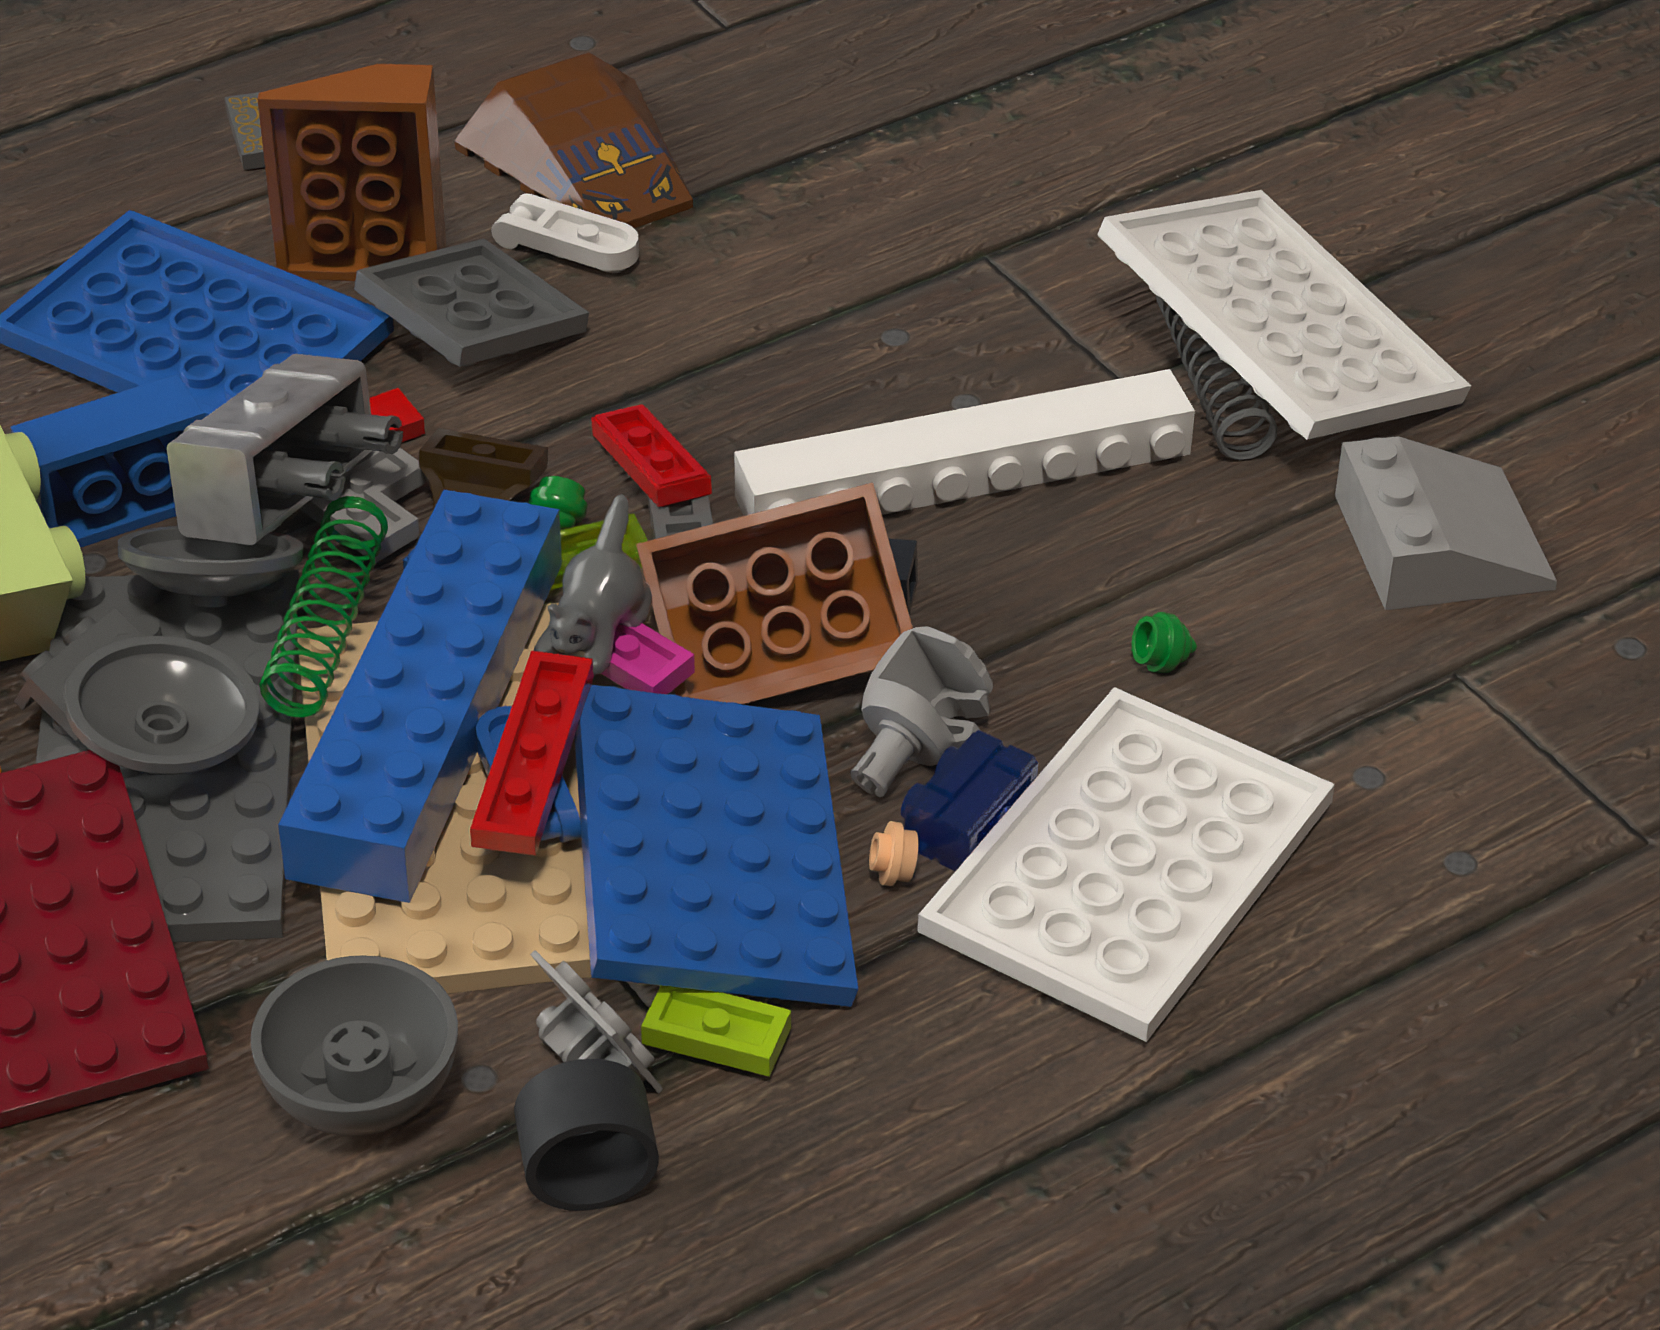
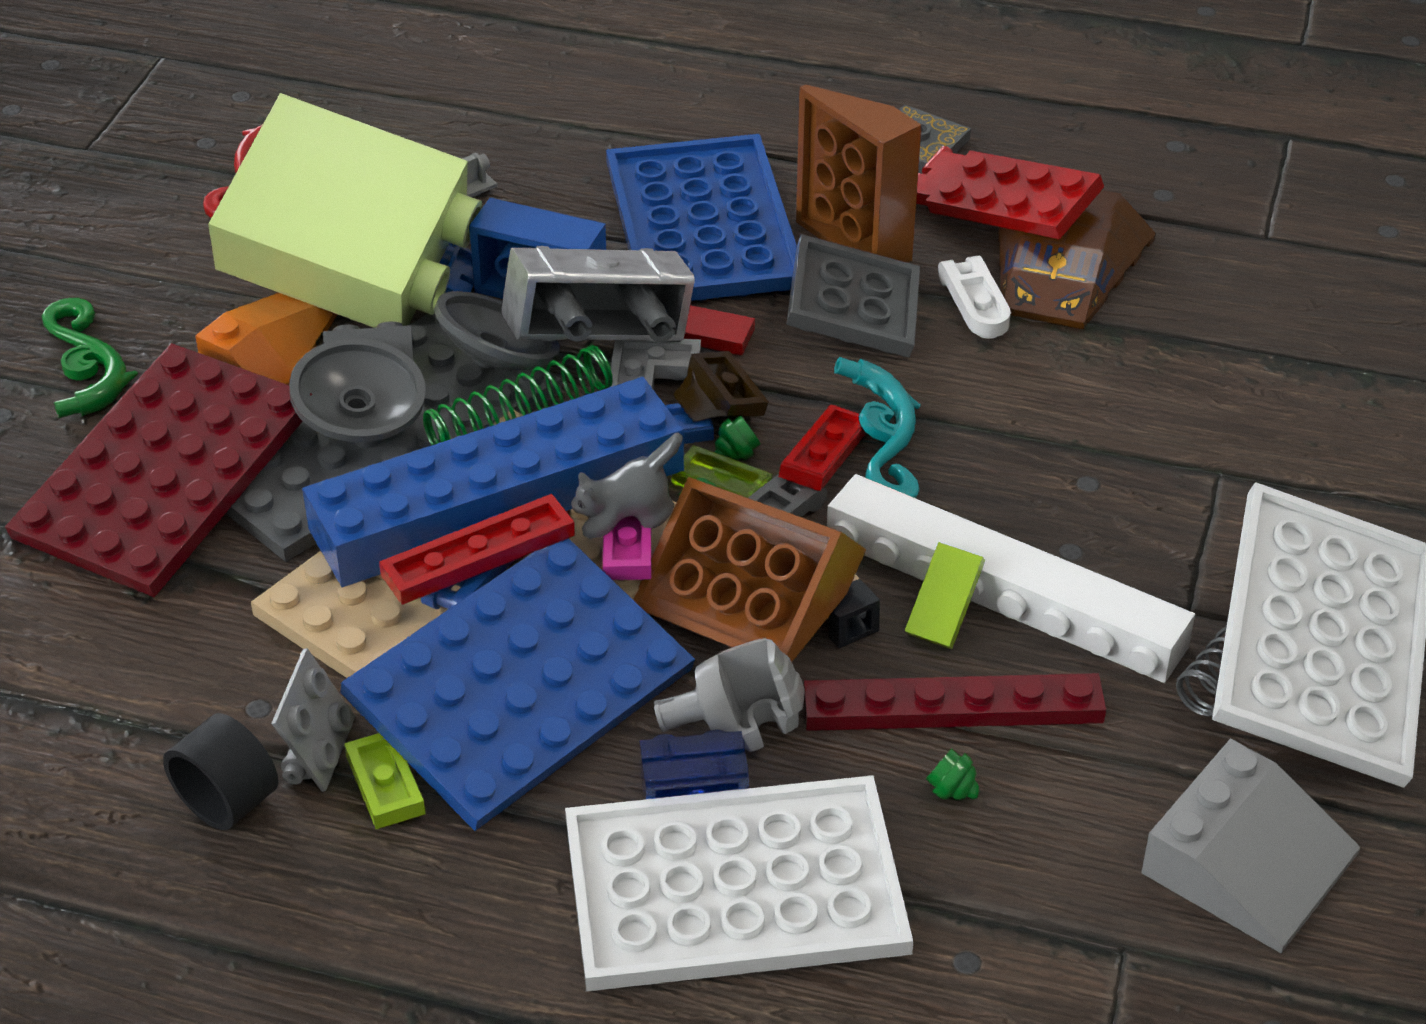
camera: 50 degrees right, 0 degrees up
(355, 1043) = (191, 632): dark grey piece -> none
(515, 104) = (1006, 191): none -> red hinge
(660, 394) = (876, 418): none -> teal plant
(894, 854) = (611, 766): light nougat plate -> none
(953, 501) = (945, 595): none -> lime tile
(1078, 580) = (953, 701): none -> dark red plate

